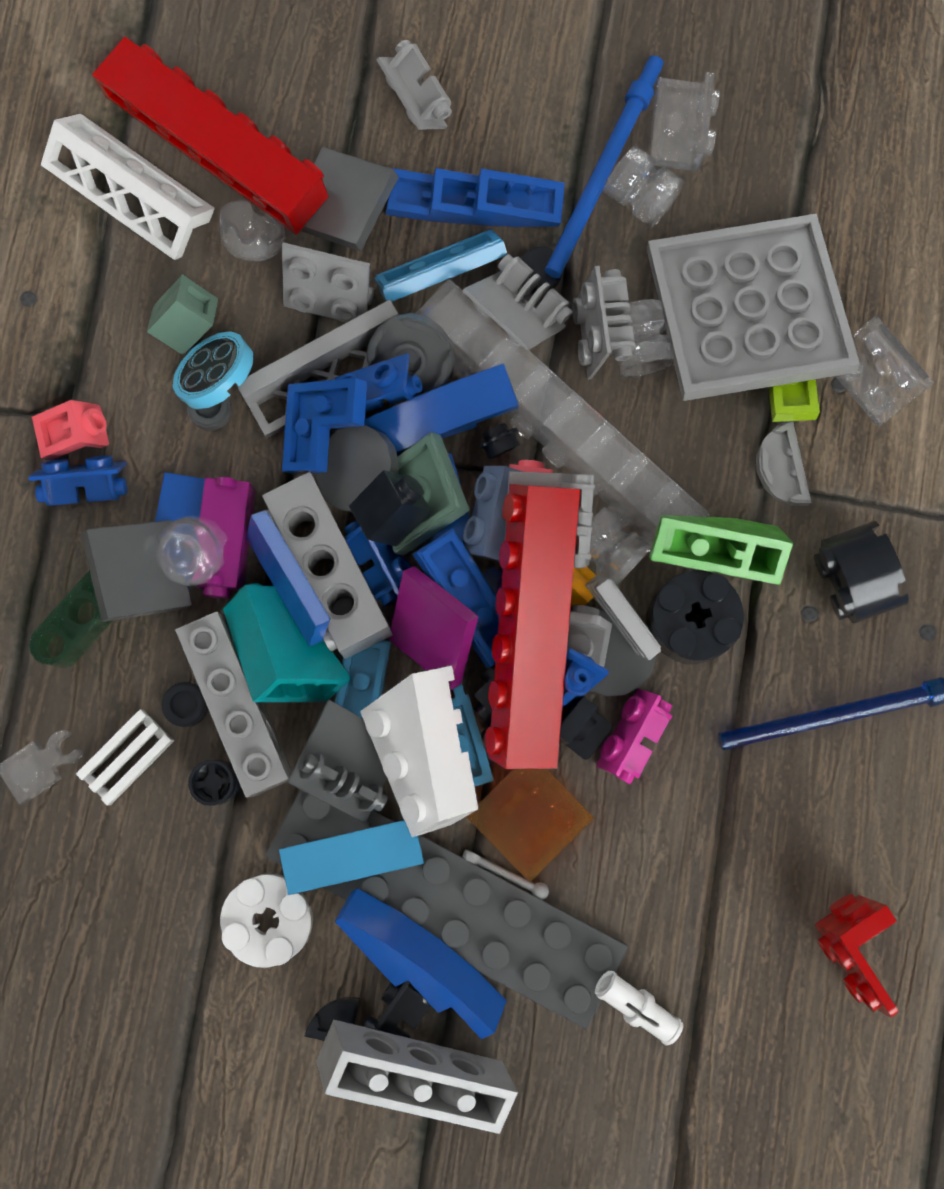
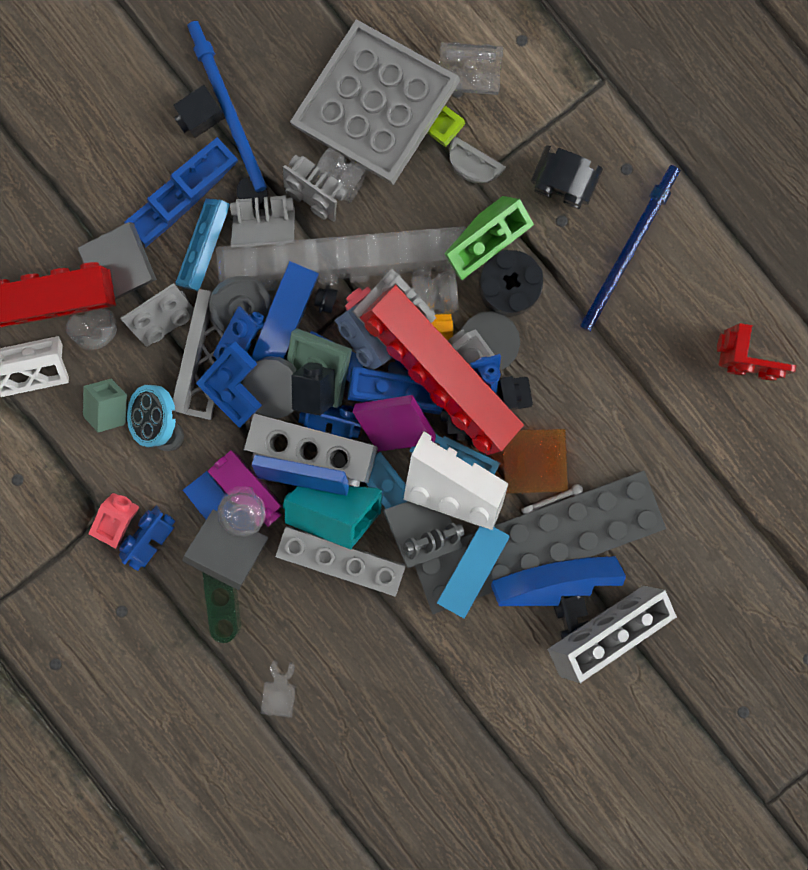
camera: 40 degrees left, 5 degrees up
(97, 784) = (317, 668): white tile -> none
(184, 705) = (316, 587): black tile -> none
(206, 783) = (374, 610): black wheel -> none
(279, 943) = (482, 649): white plate -> none
(341, 1009) = (542, 657): black tile -> none
(424, 102) = (104, 169): light grey hinge -> none
(571, 142) = (198, 112): none -> black brick
(623, 617) = (478, 320): light grey tile -> none
(639, 1008) = (679, 492): white pin -> none
(642, 717) = (544, 383): dark pink hinge -> none
(643, 186) = (258, 97): clear wheel -> none
(682, 122) = (241, 43): clear bracket -> none

